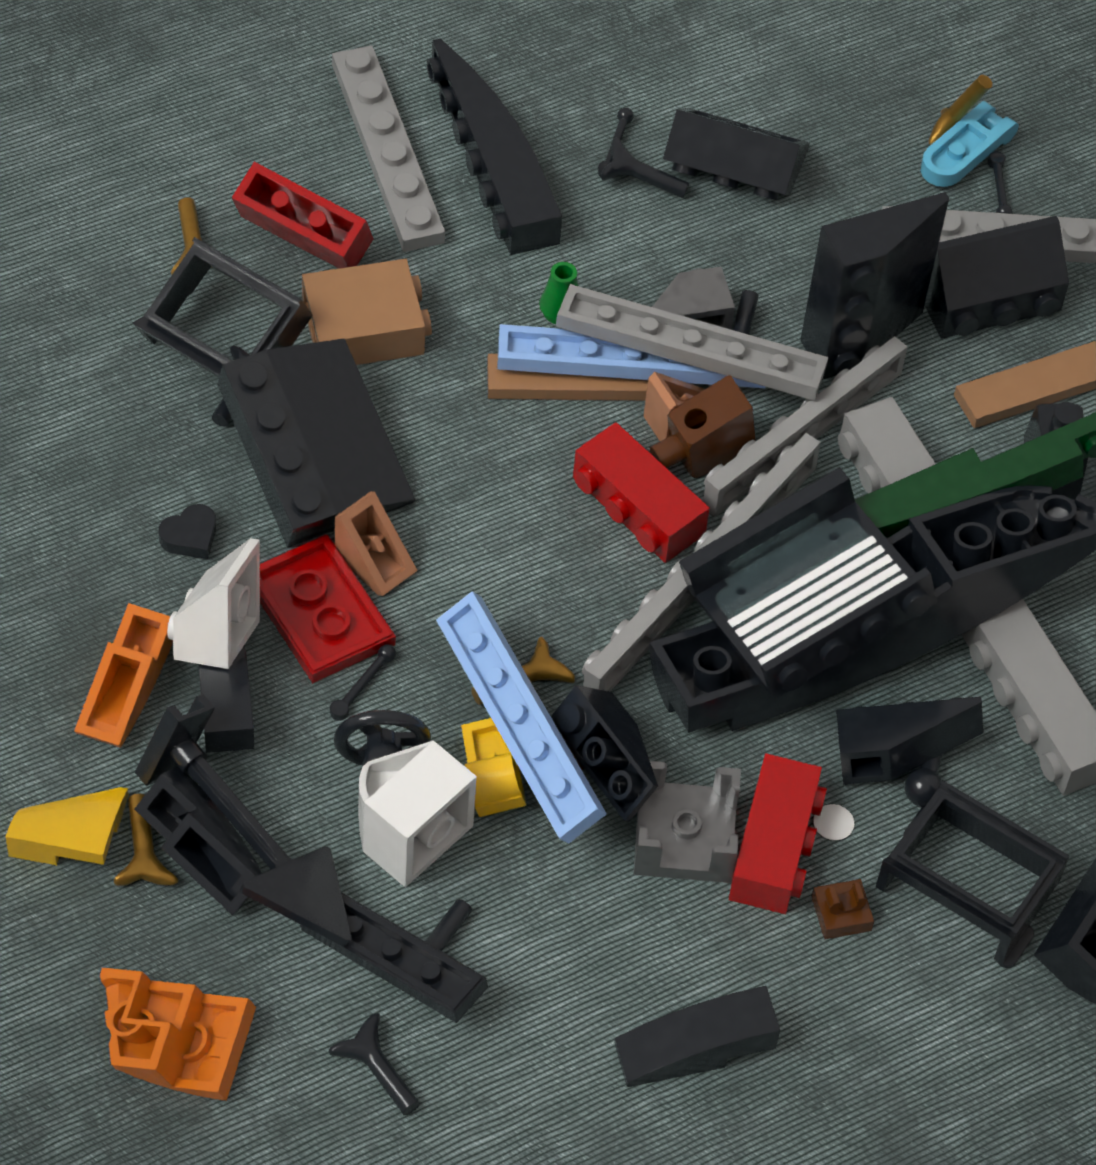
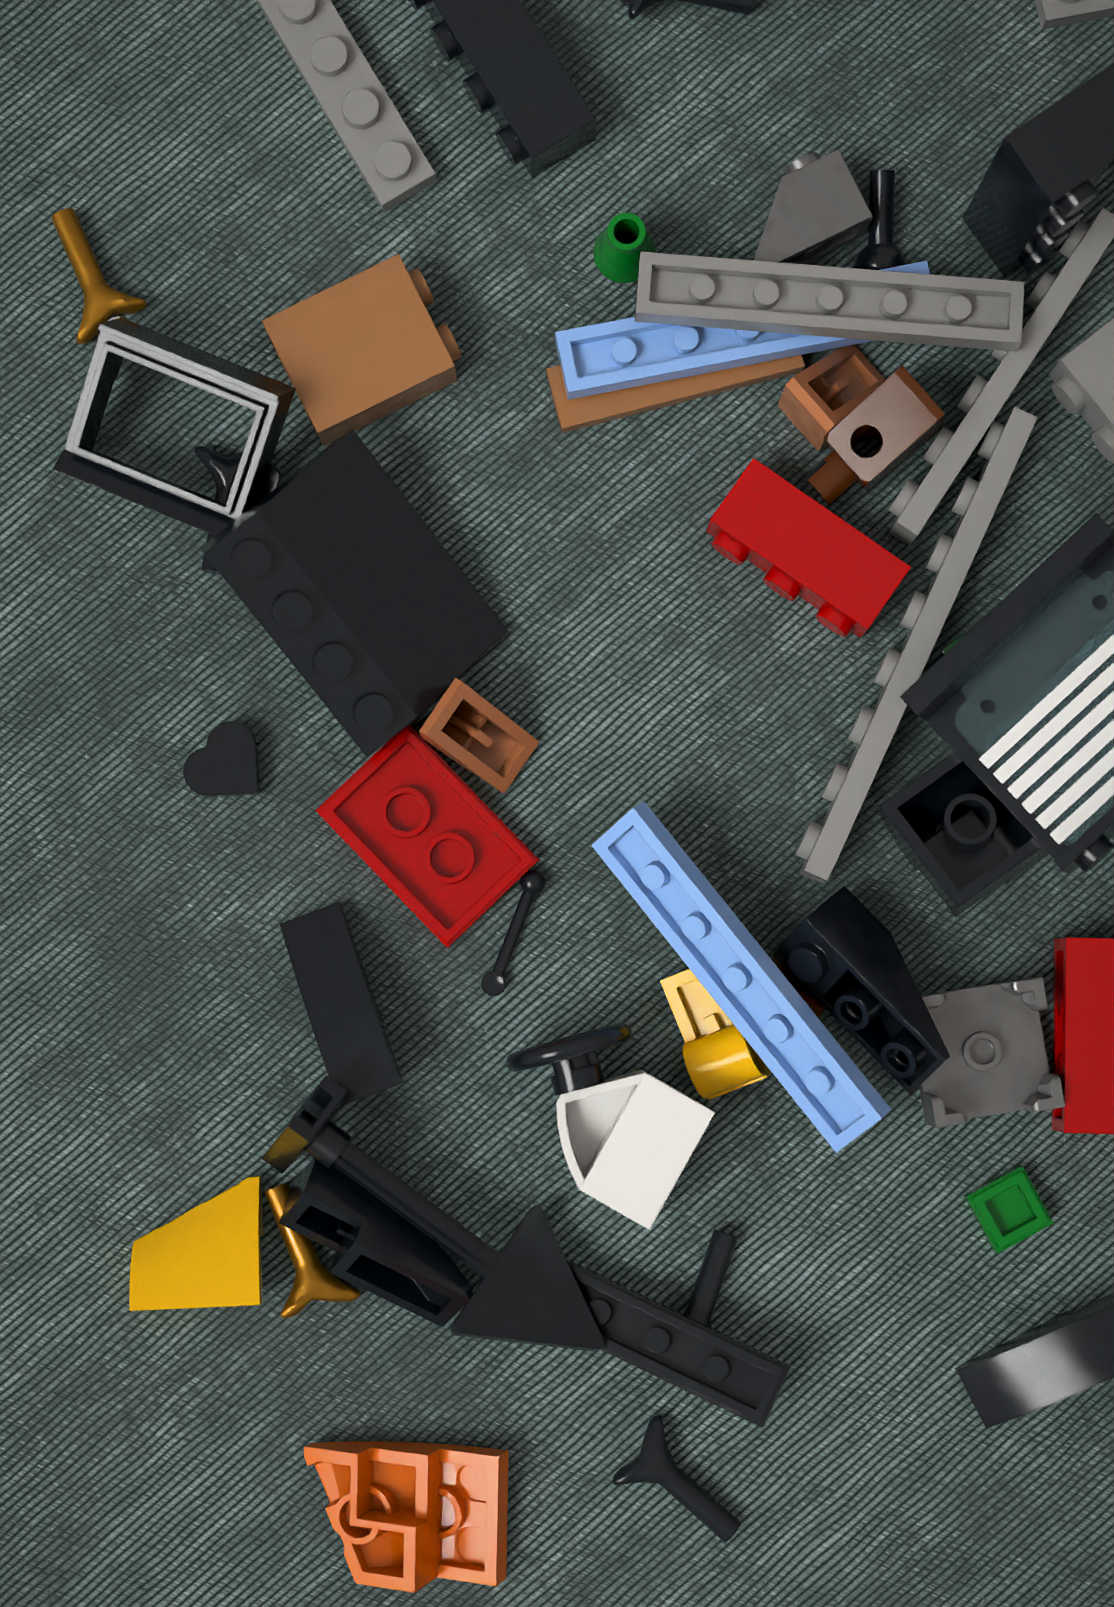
camera: 10 degrees left, 30 degrees up
(125, 676) = (209, 1017): orange slope -> none
(219, 610) = (302, 911): white slope -> none
(302, 217) = (233, 215): red brick -> none
(542, 667) = (738, 852): pearl gold piece -> none
(681, 939) = (1008, 1209): none -> green tile

